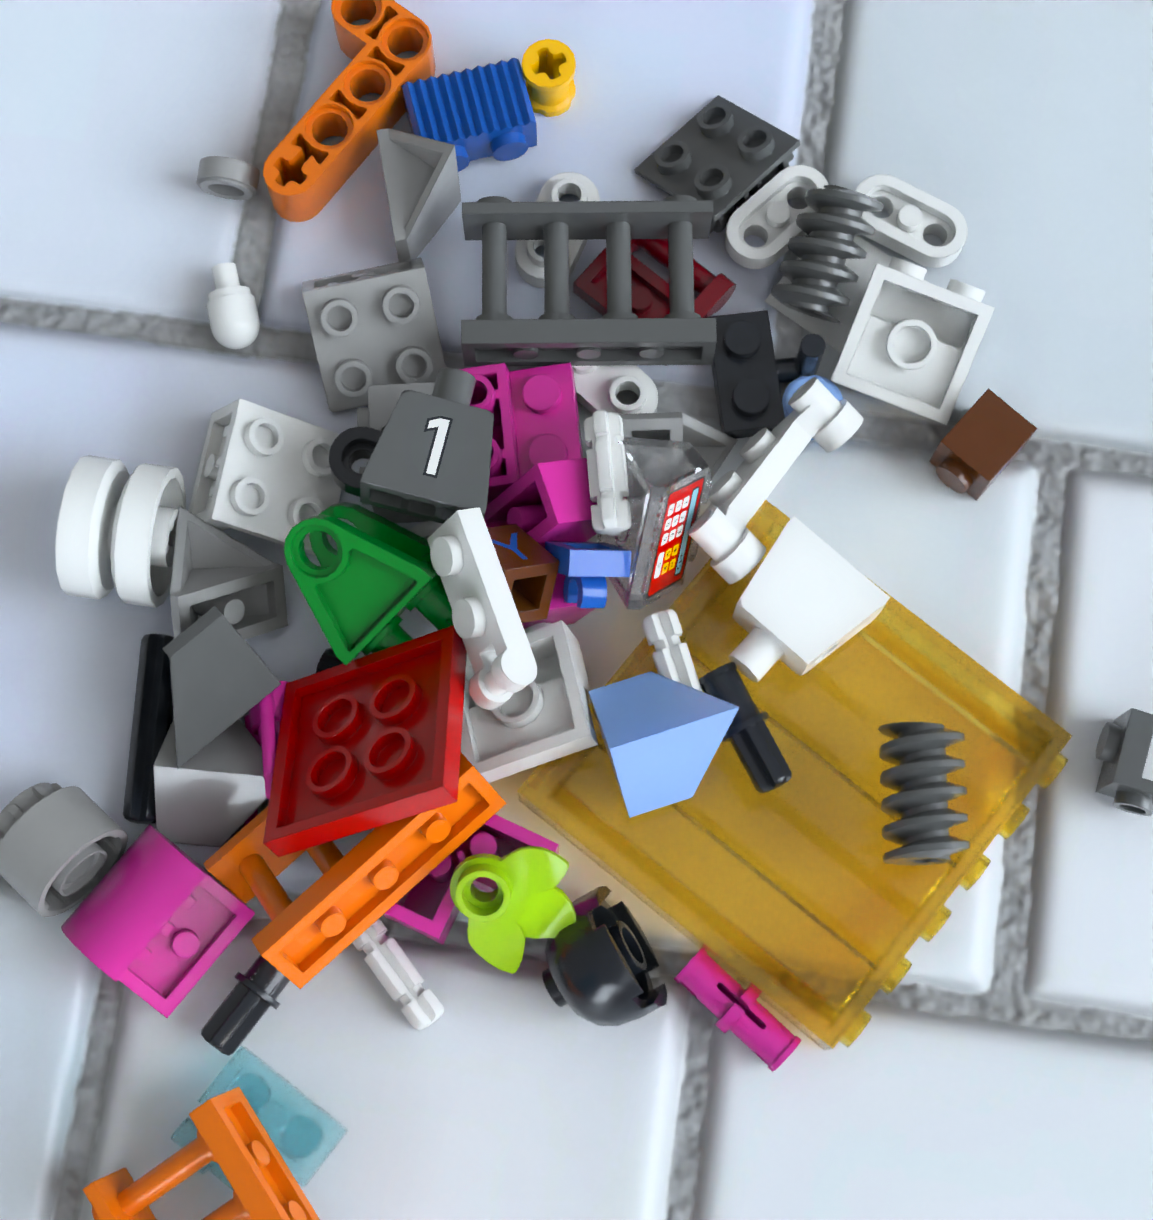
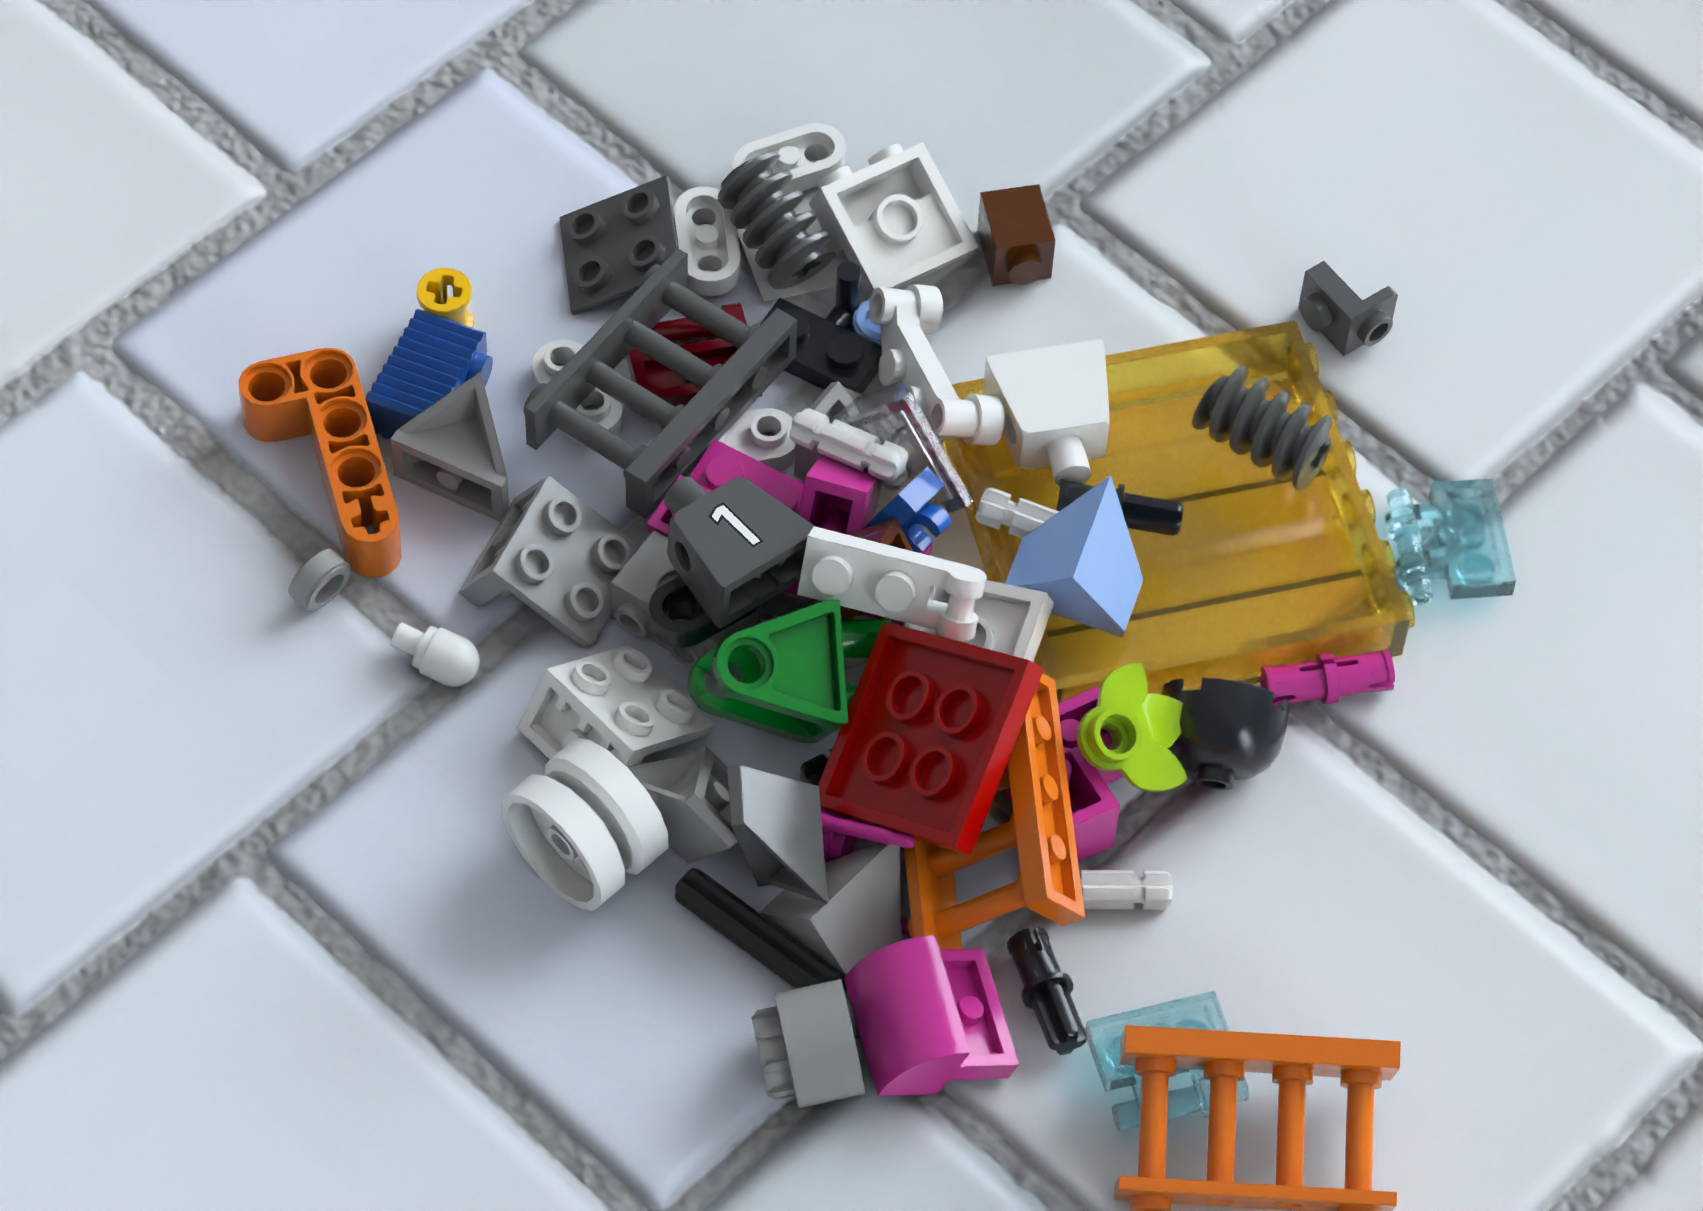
camera: 55 degrees left, 20 degrees down
(979, 1033) = (1469, 535): none -> clear light blue plate

